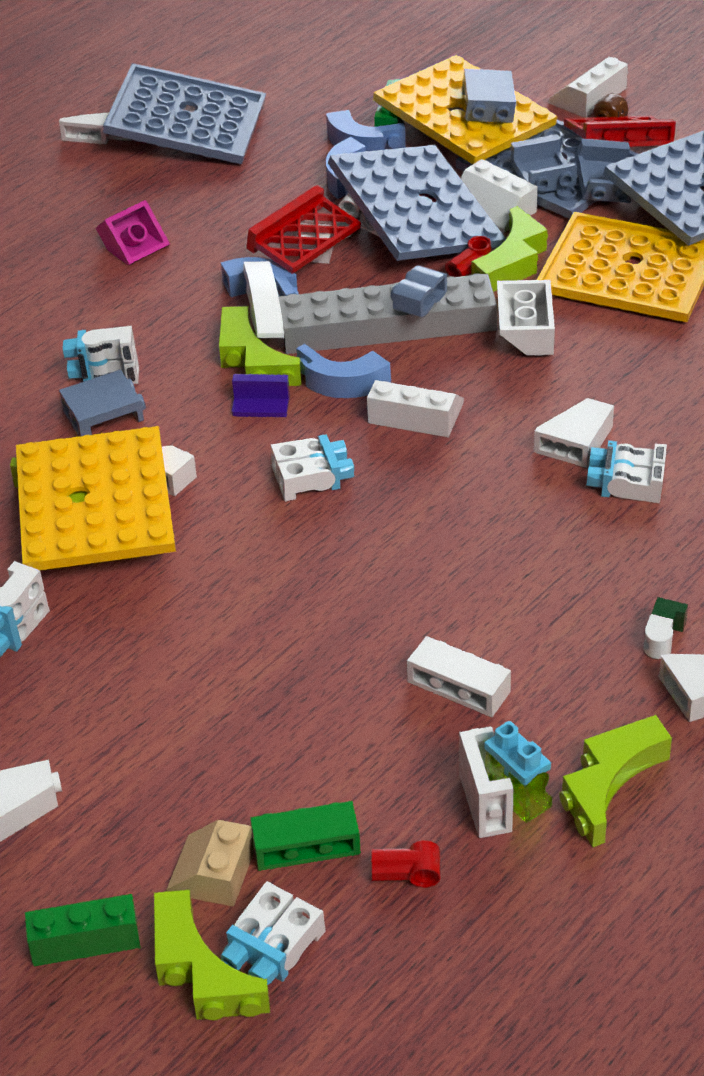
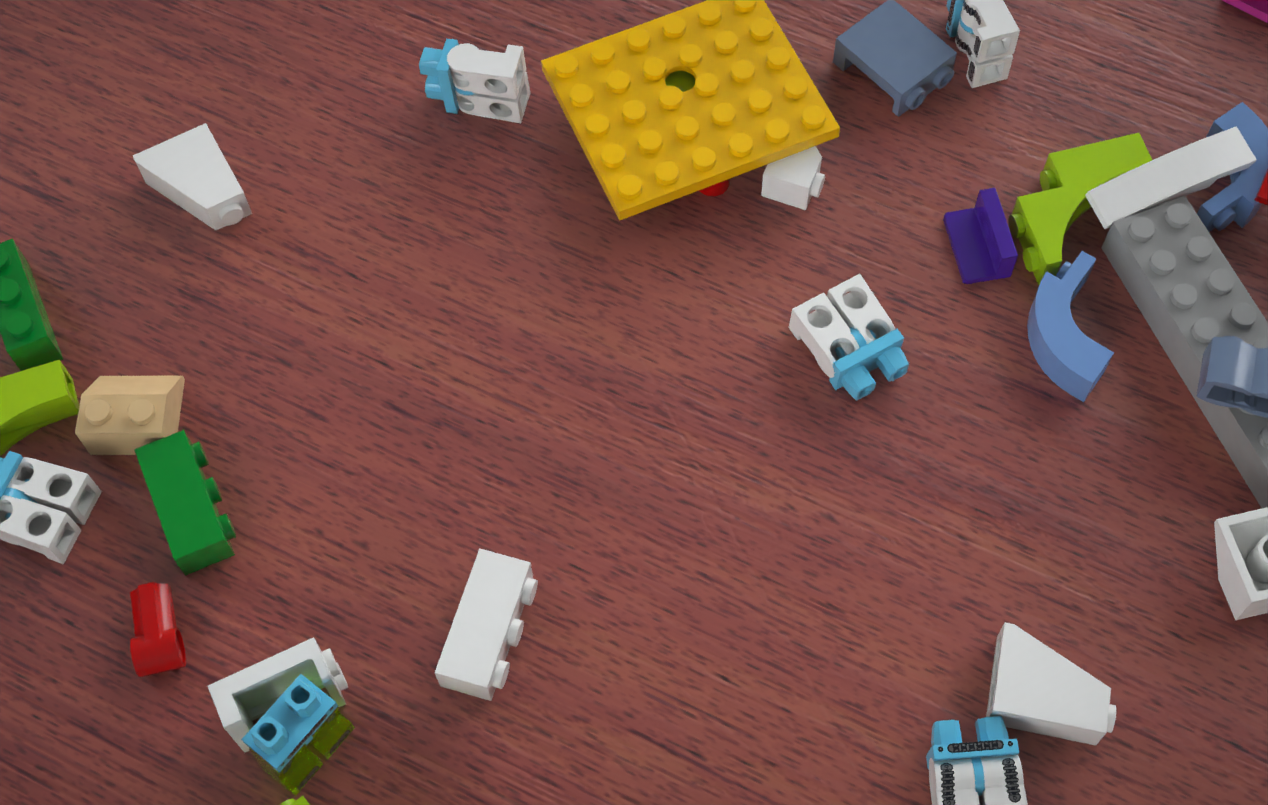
camera: 75 degrees right, 20 degrees up
(413, 408) = (1031, 443): white slope -> none

